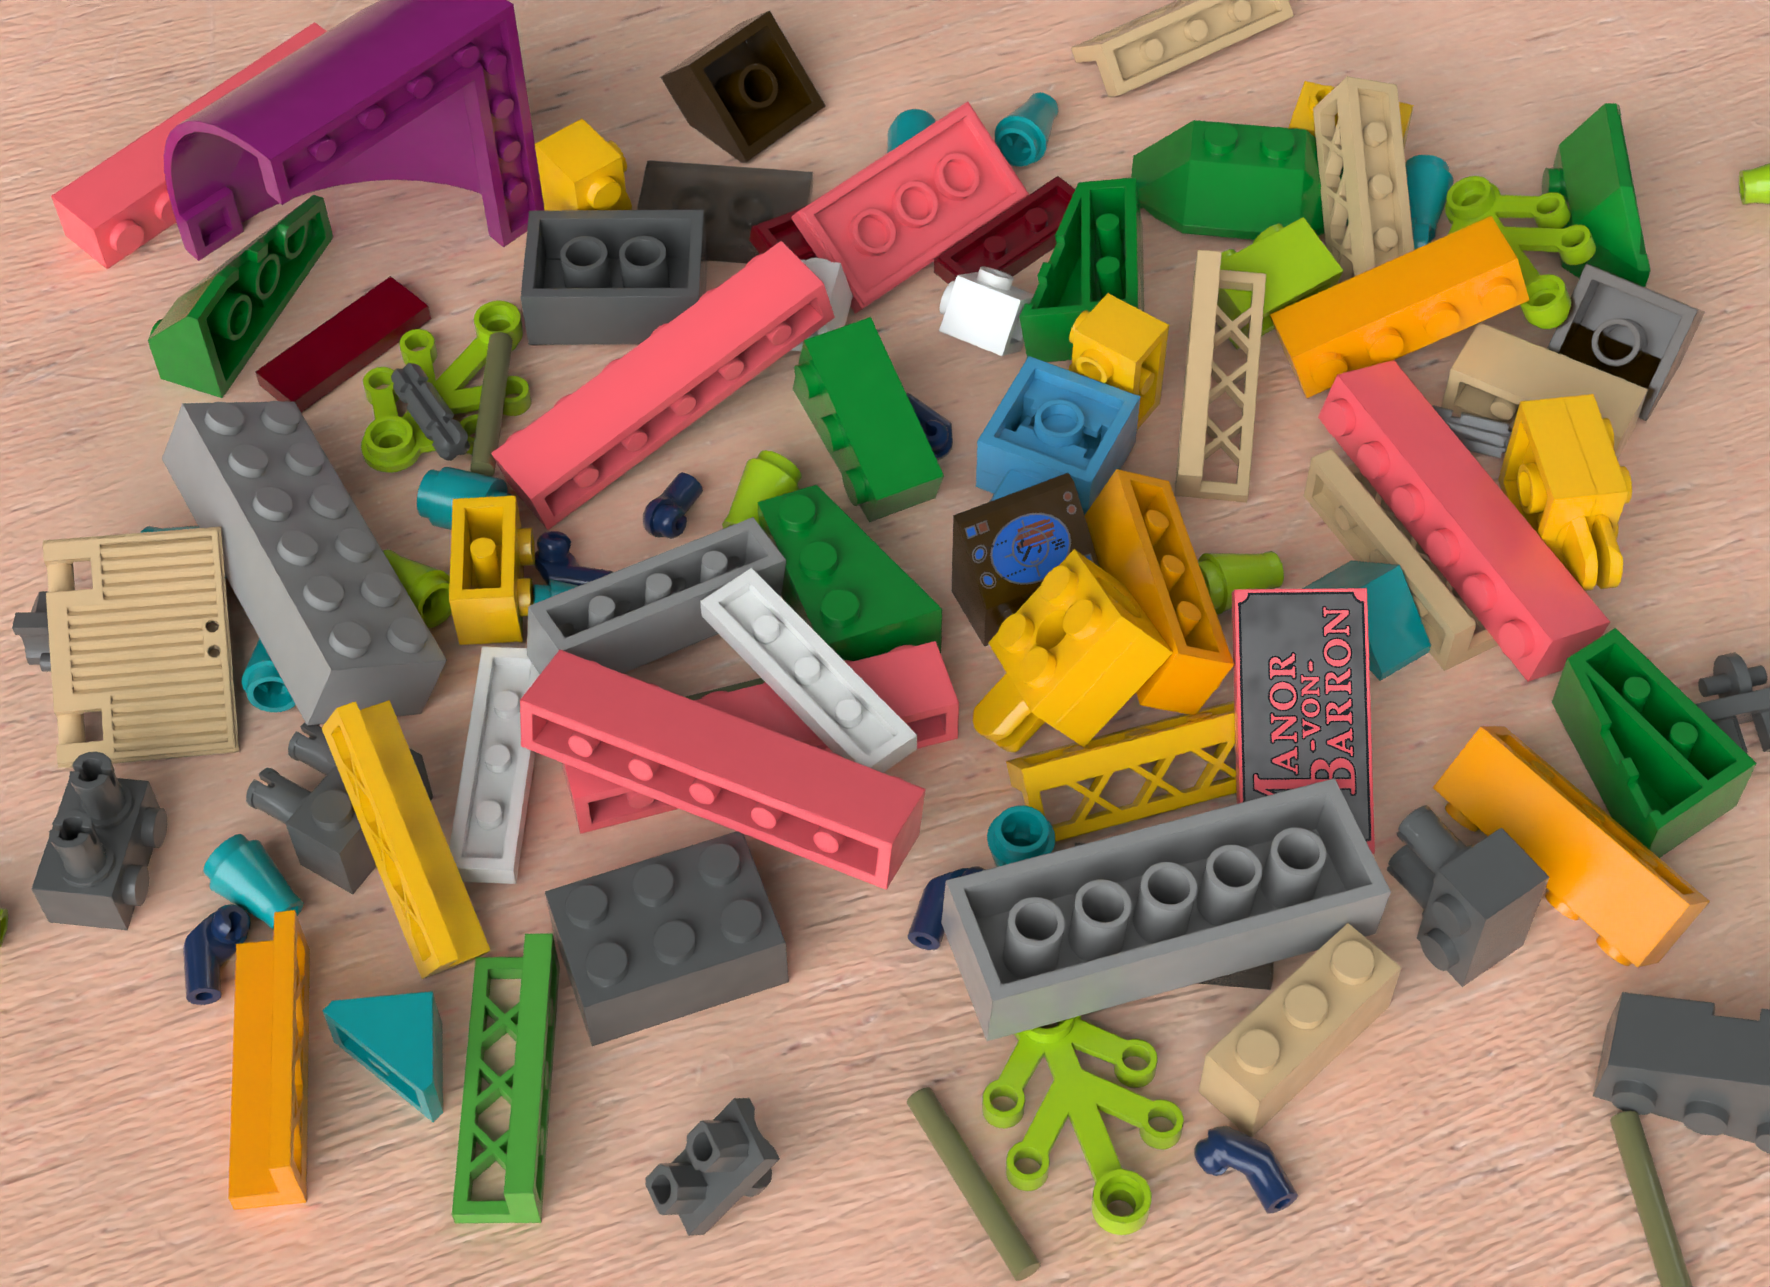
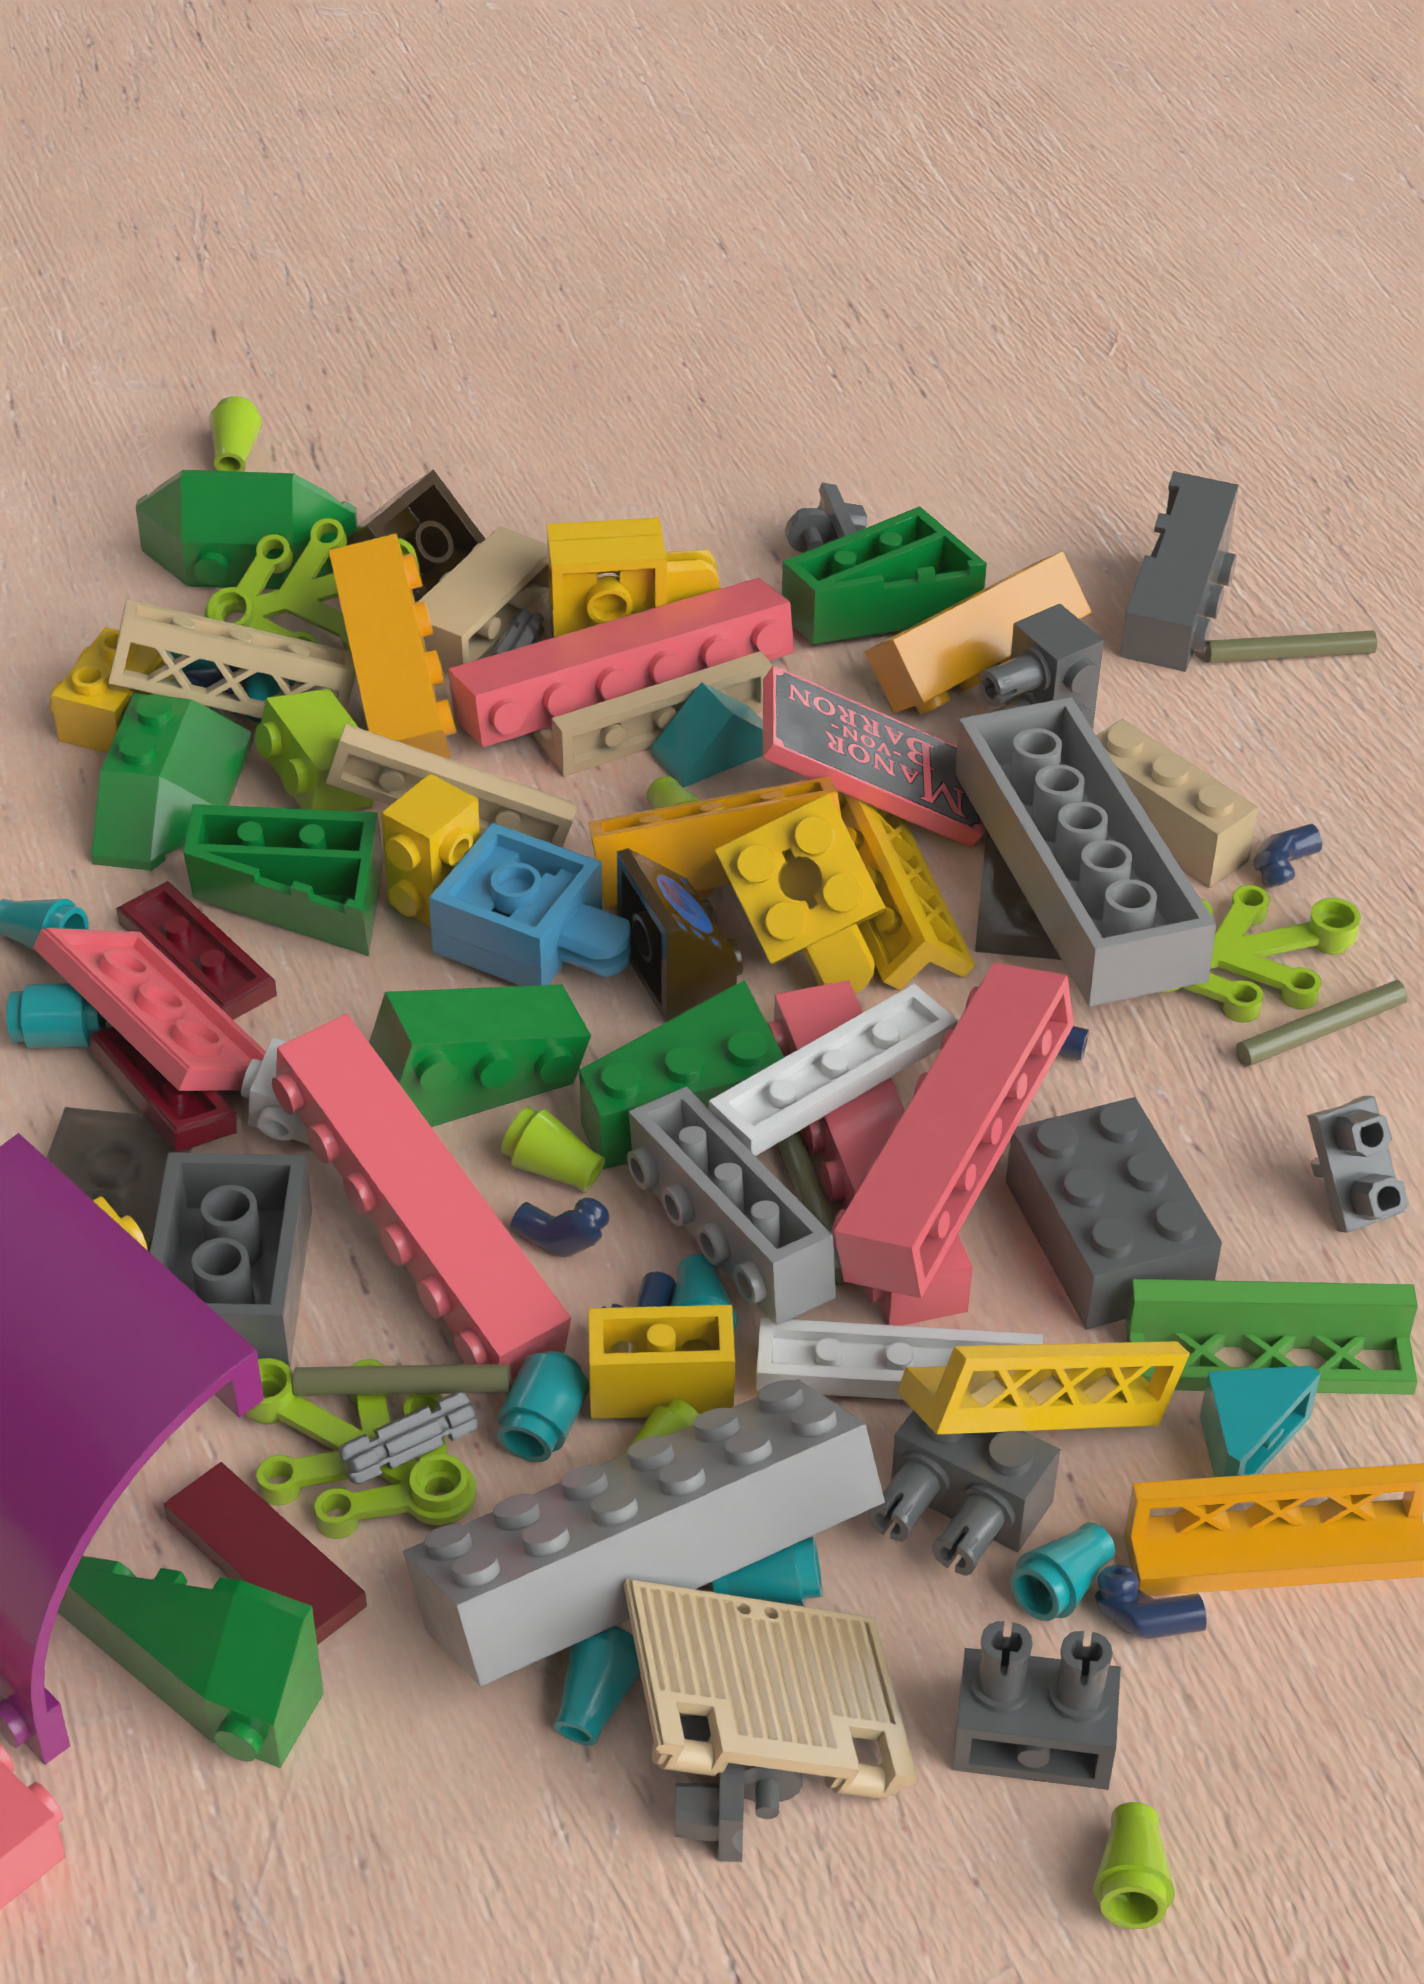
camera: 90 degrees left, 10 degrees down
(985, 310) = (328, 953): white brick -> none
(1019, 835) = (1006, 938): teal cone -> none

